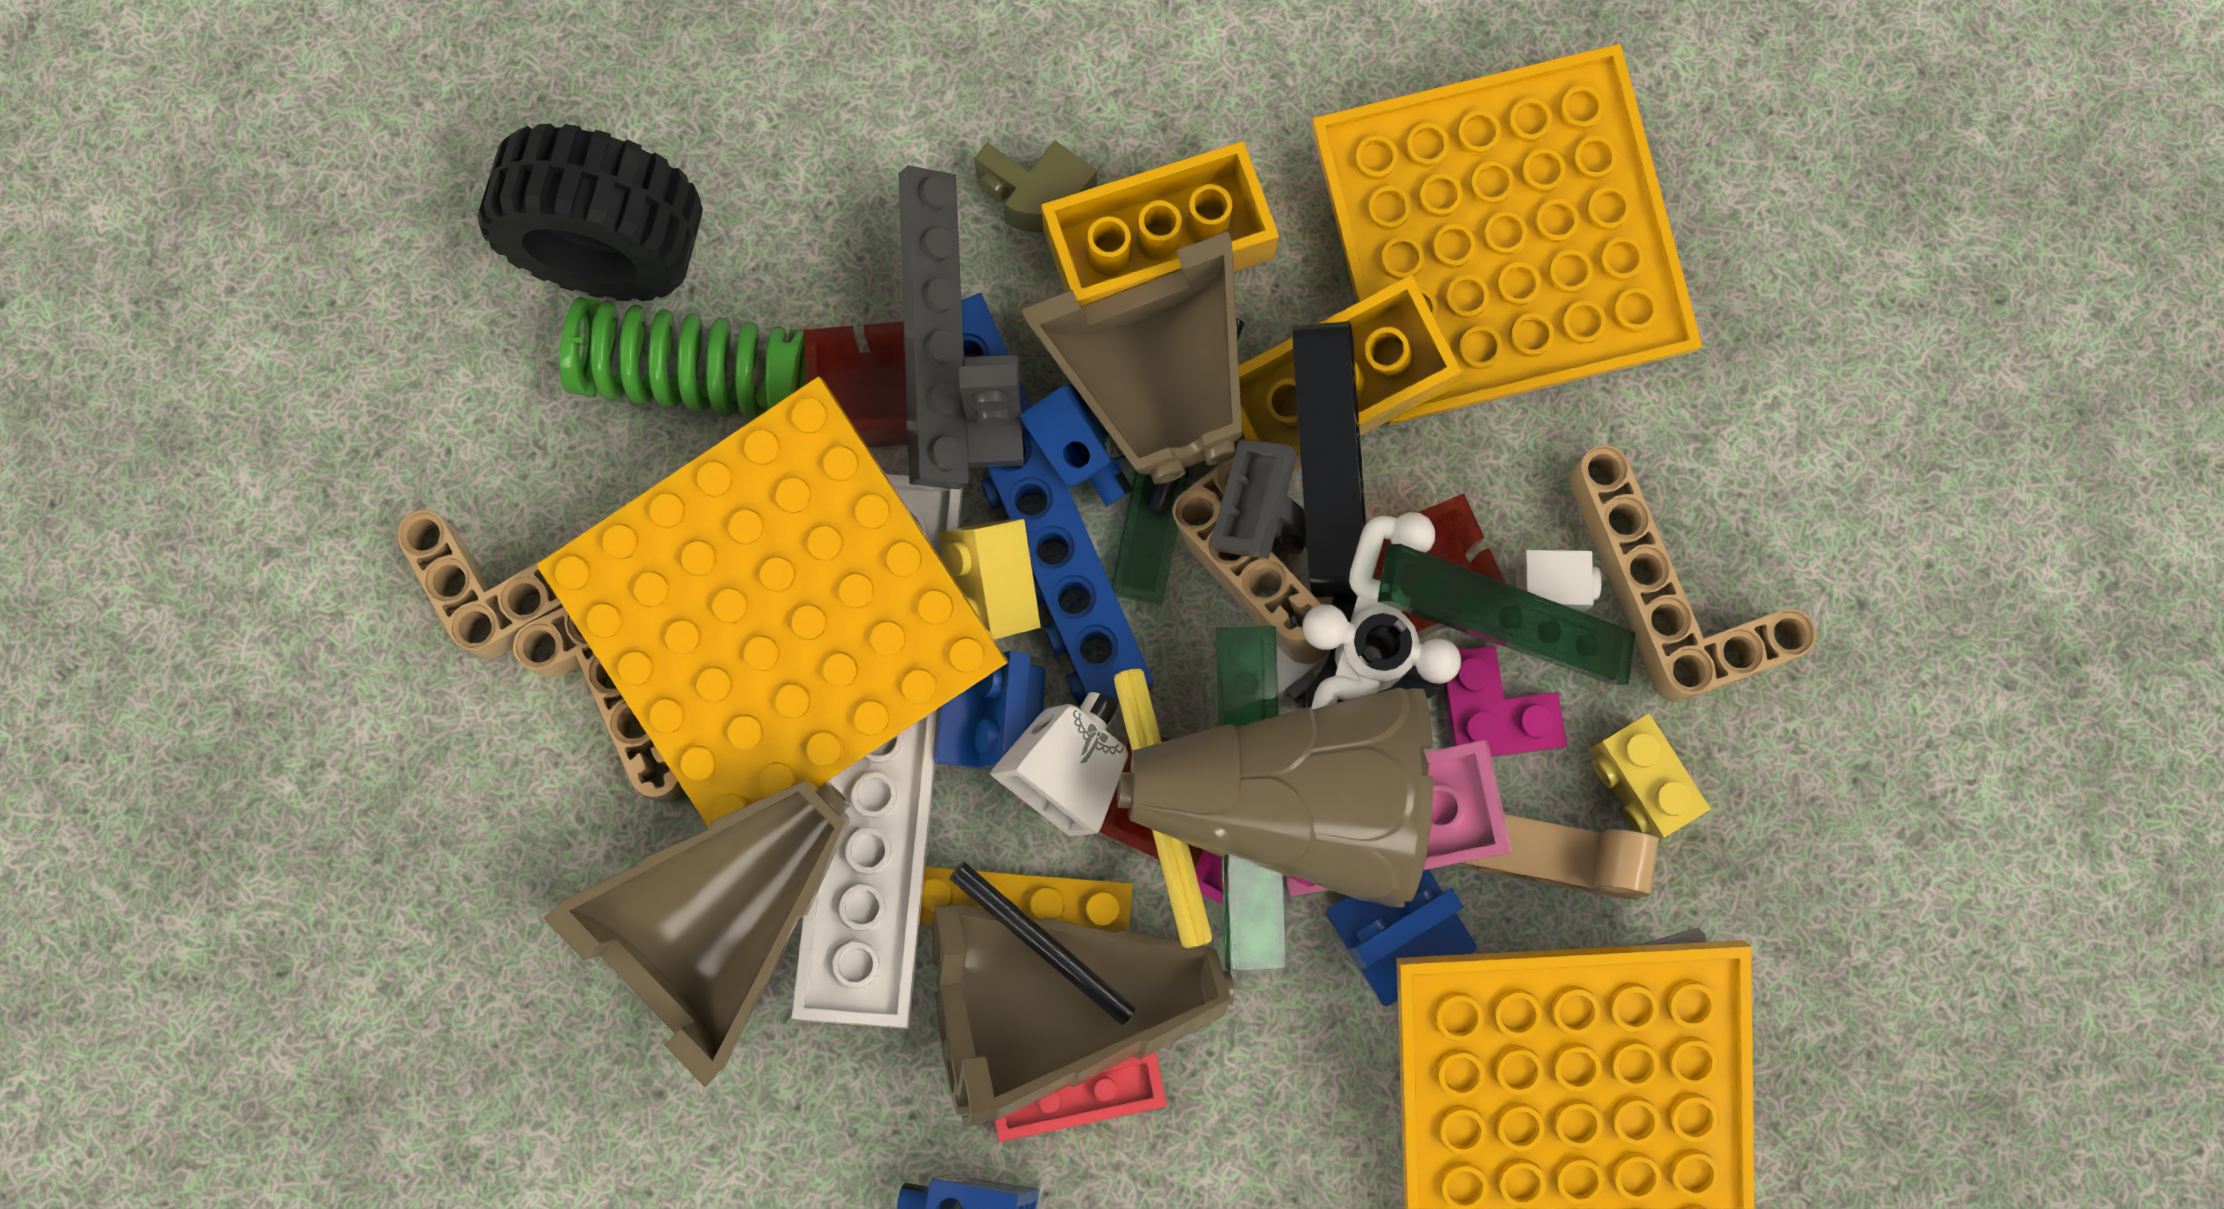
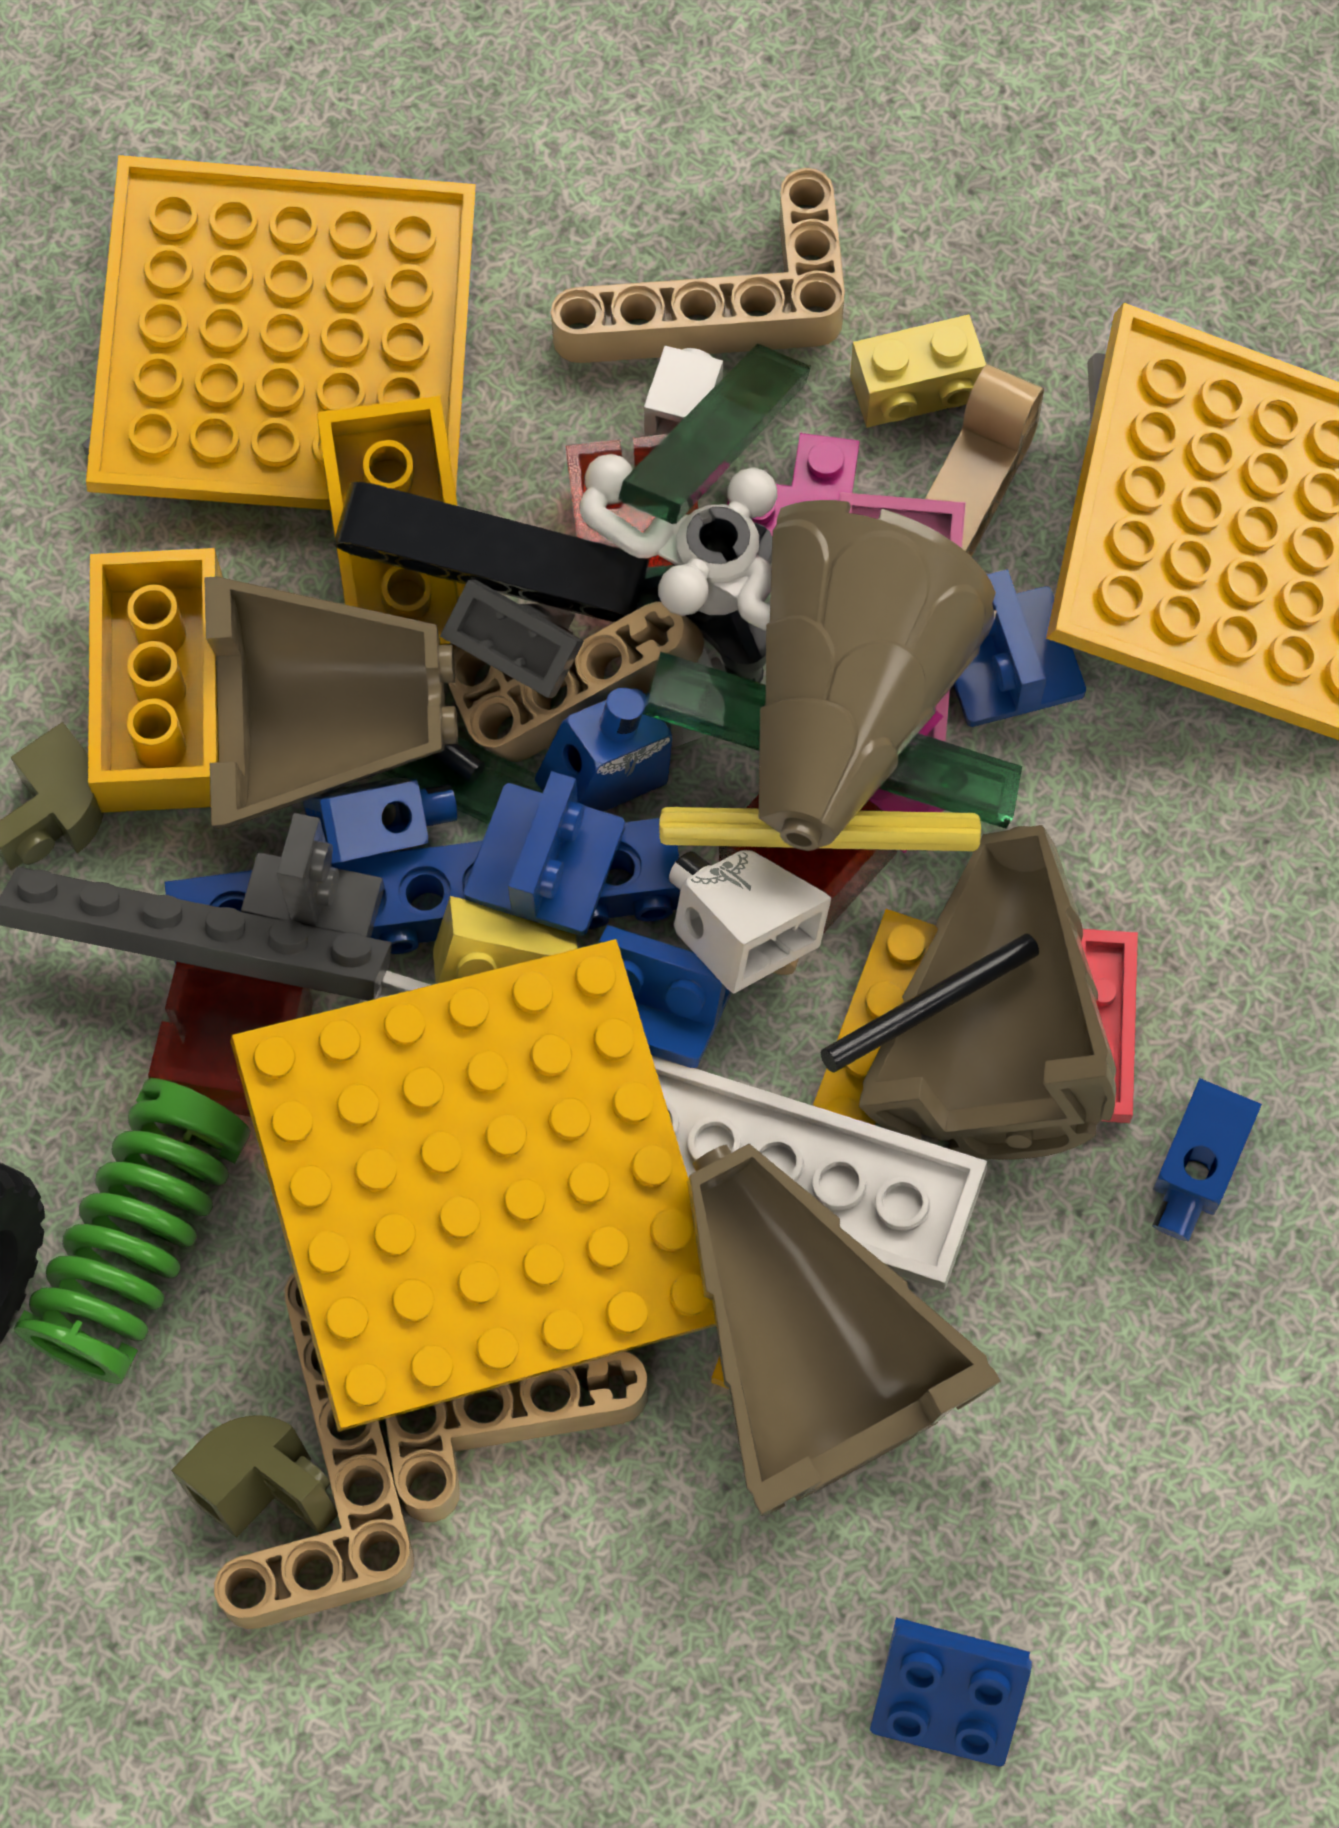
camera: 70 degrees left, 10 degrees down
(478, 1110) = (951, 1692): none -> blue bracket
(522, 508) = (248, 1465): none -> olive brick
(1078, 586) = (545, 856): none -> blue bracket
(1188, 609) = (610, 751): none -> blue torso

